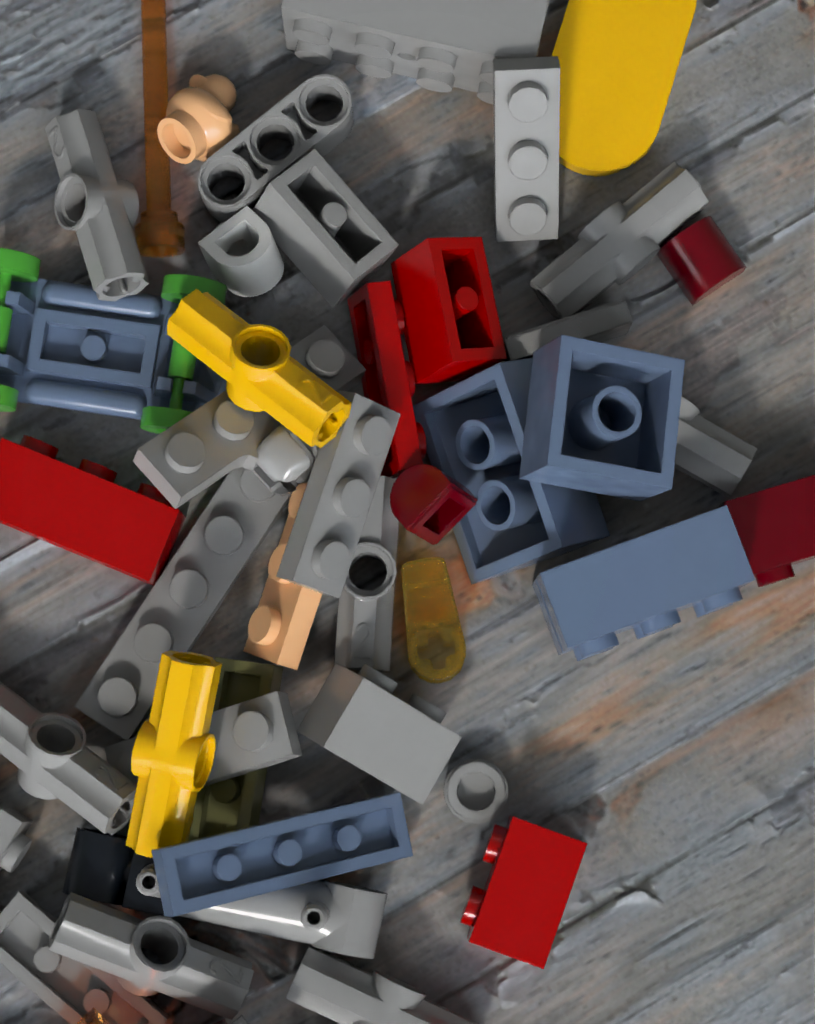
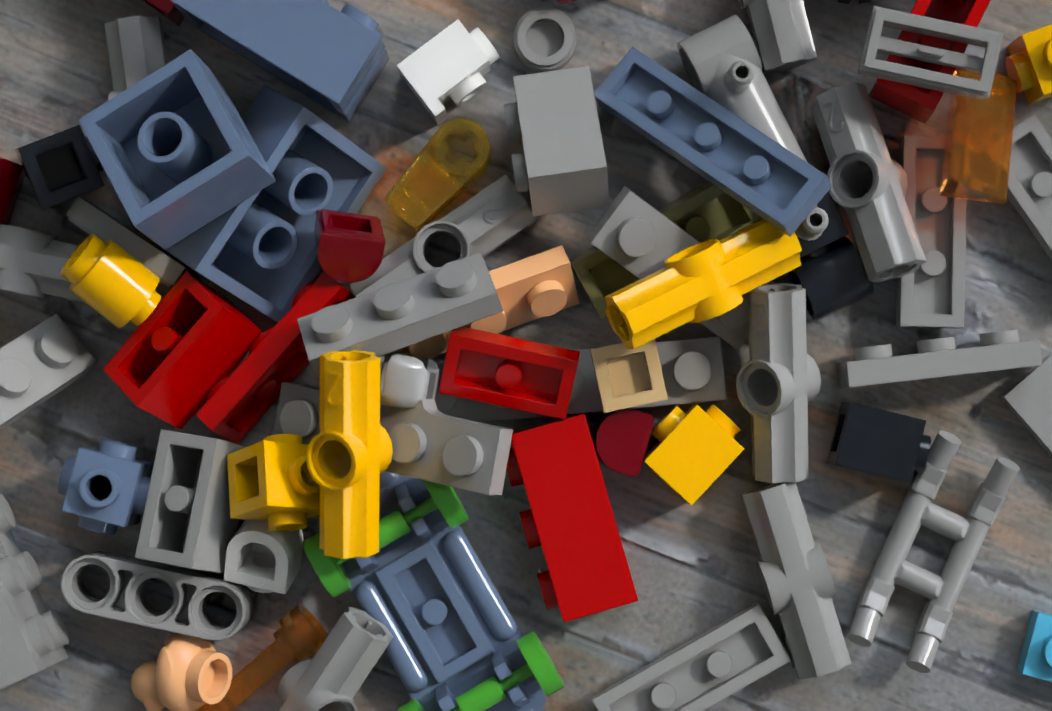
camera: 125 degrees left, 5 degrees up
(54, 646) = (693, 449): none -> yellow brick
(106, 598) = (623, 440): none -> dark red brick
(147, 634) = (628, 376): none -> tan plate
(227, 547) = (509, 372): none -> red plate
(287, 296) = (273, 483): none -> yellow brick
(396, 193) = (129, 482): none -> sand blue brick
(510, 692) = (448, 68): none -> white brick
(542, 293) = (112, 281): none -> yellow brick
(668, 324) = (60, 167): none -> black brick

